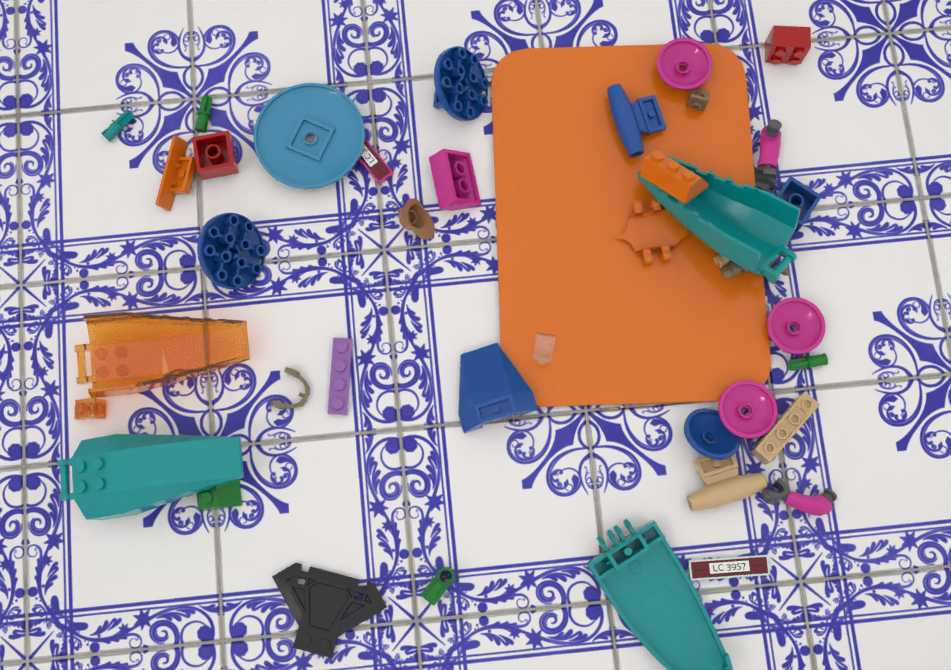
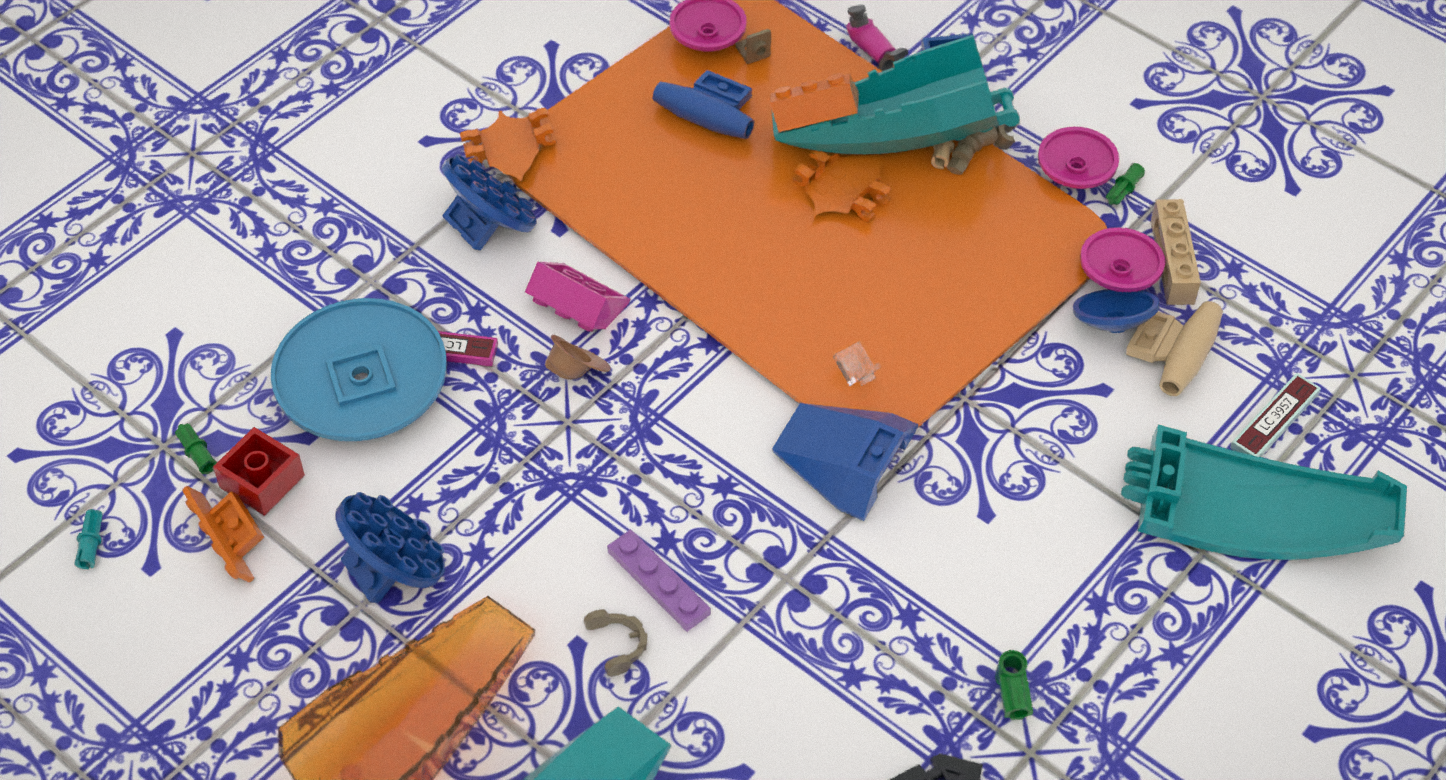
camera: 45 degrees left, 25 degrees down
(509, 54) = (510, 142): none -> orange animal
(815, 505) = (1283, 292): piece -> none

